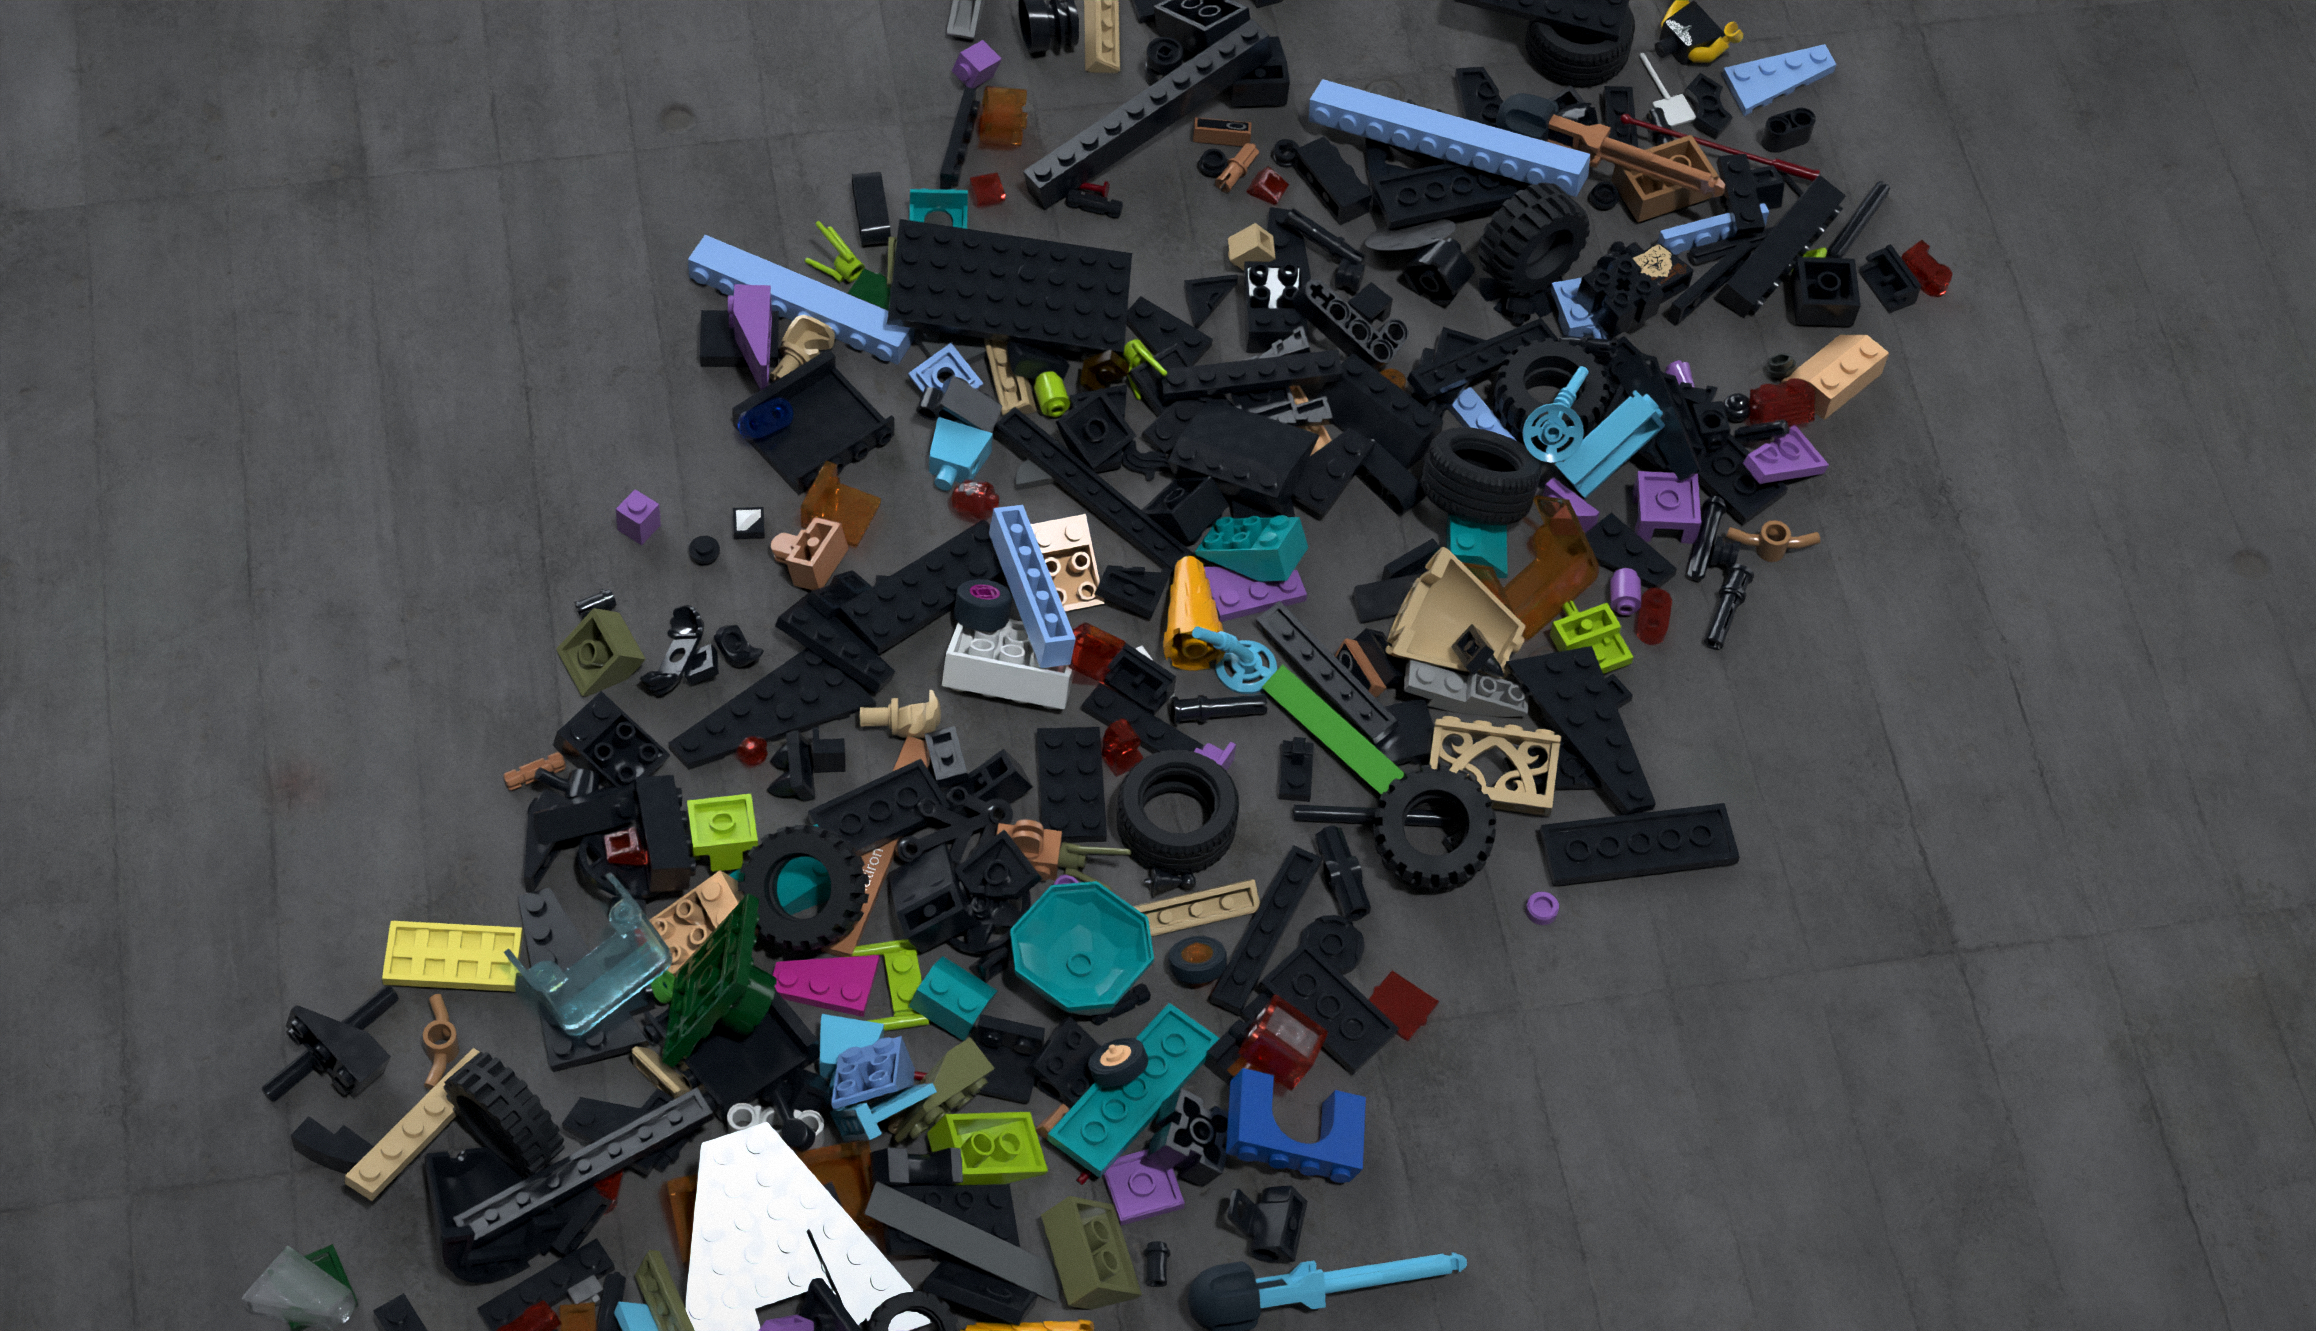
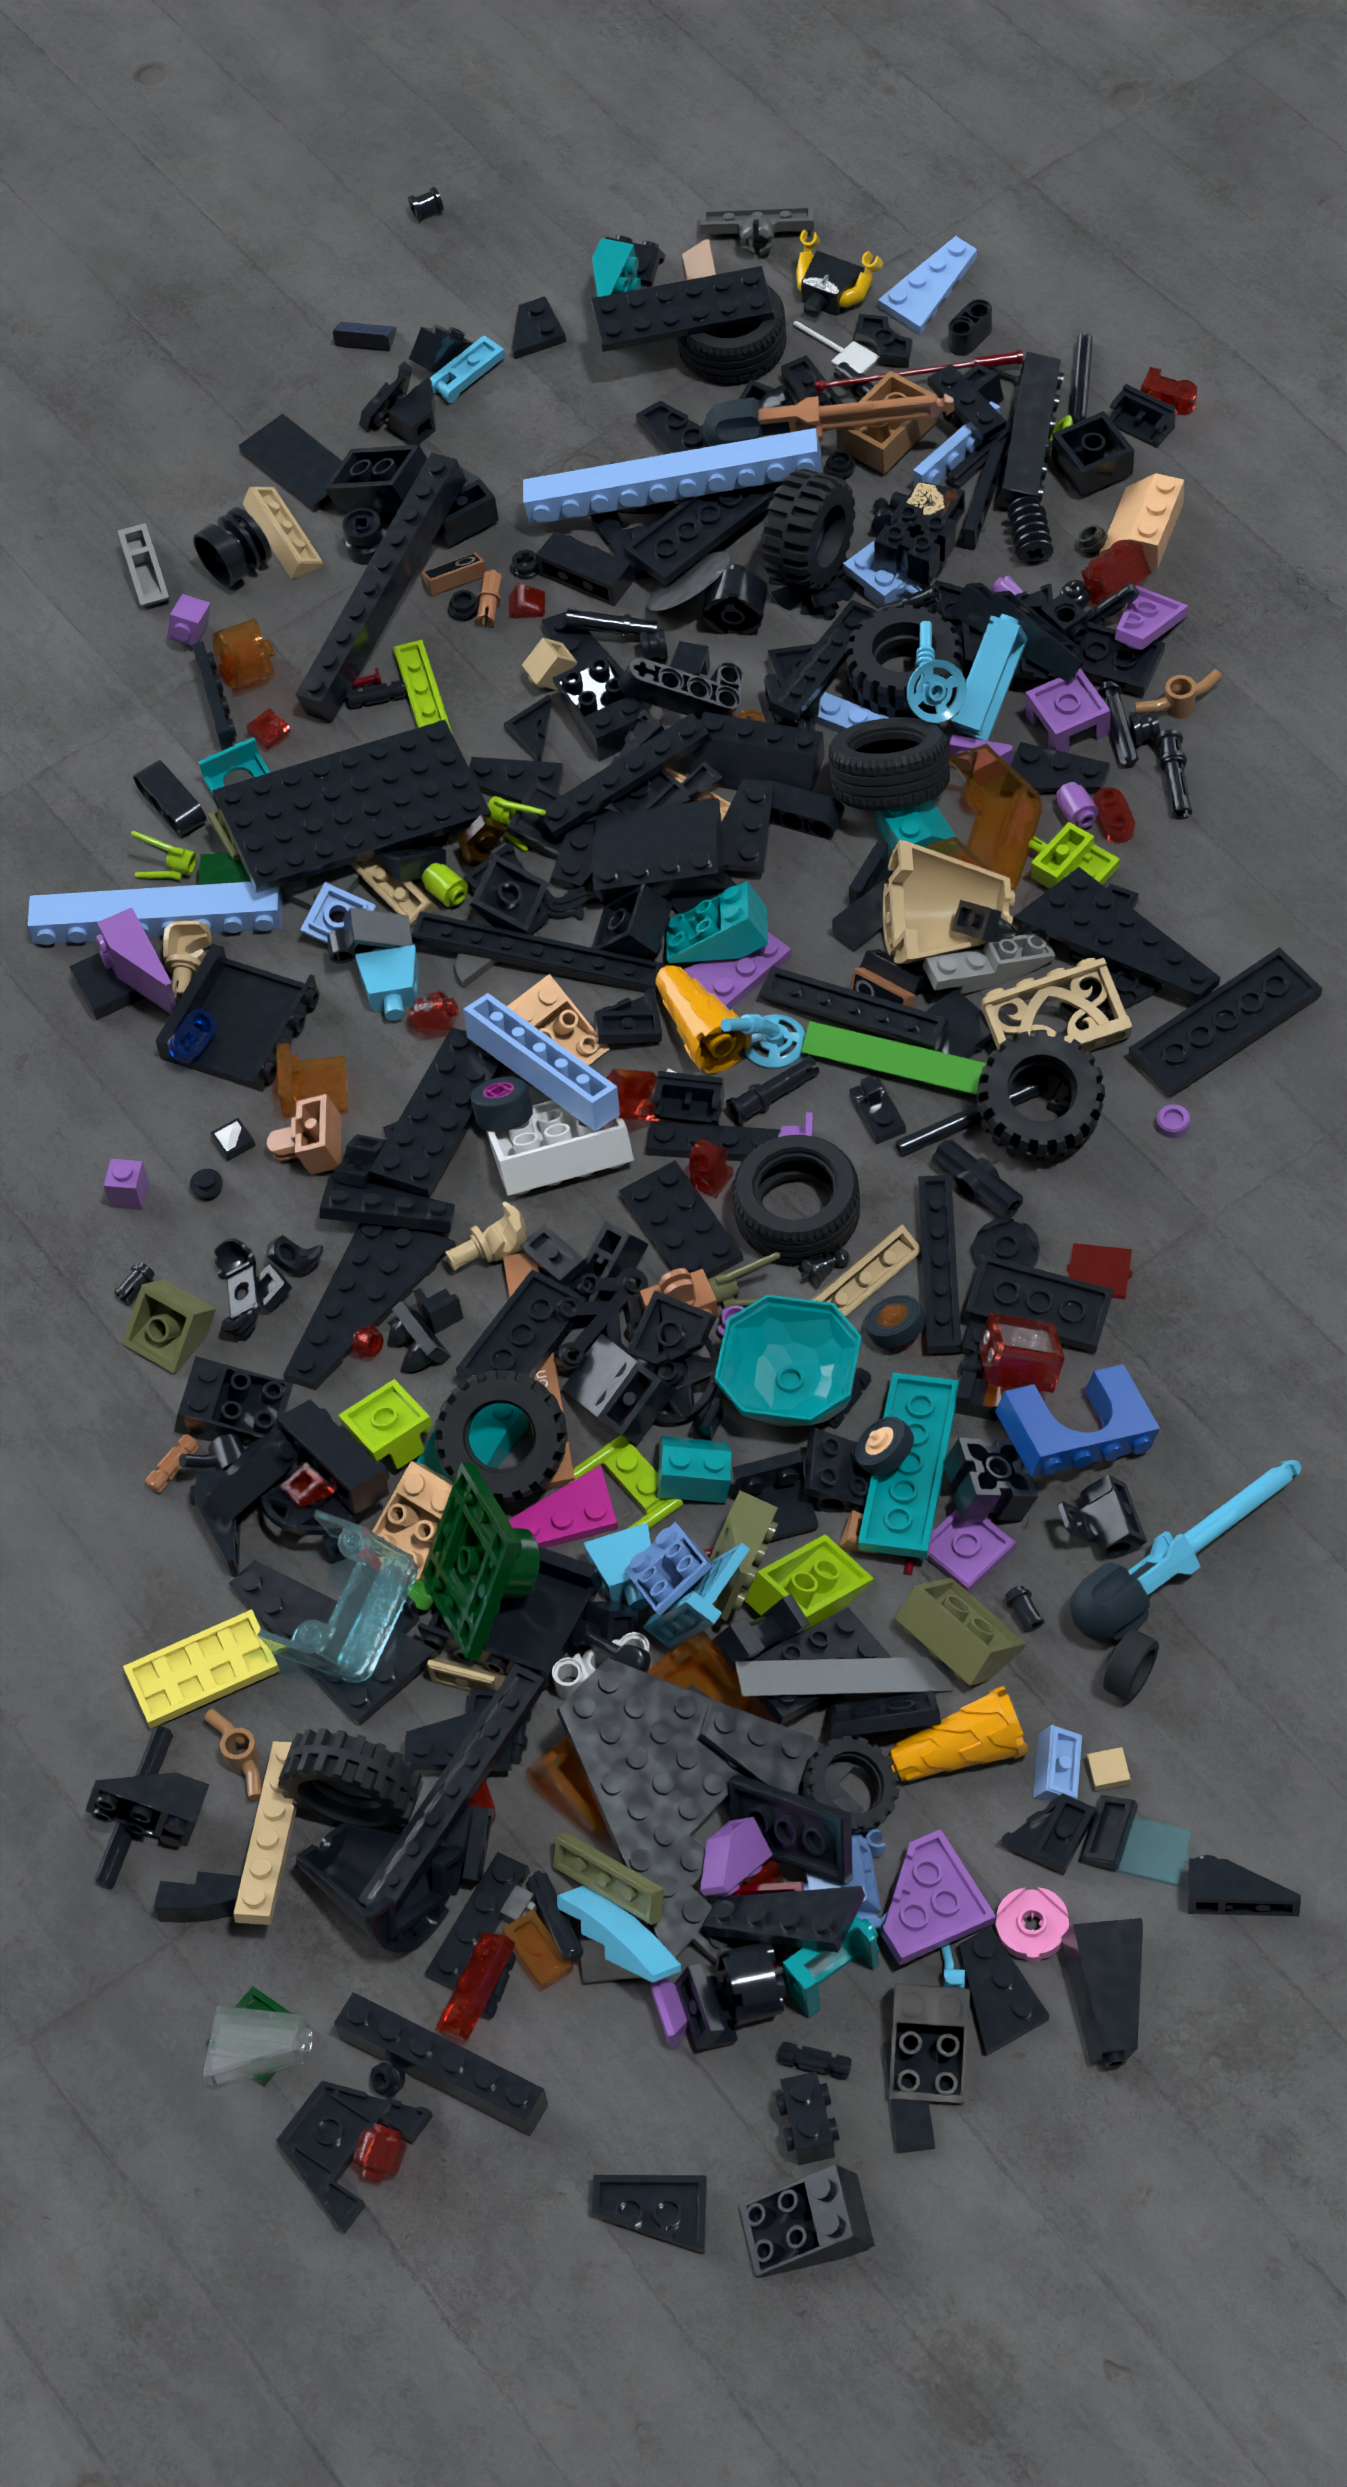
camera: 15 degrees left, 0 degrees up
(1136, 218) = (420, 683): none -> lime tile
(1731, 332) = (1030, 530): none -> black piece

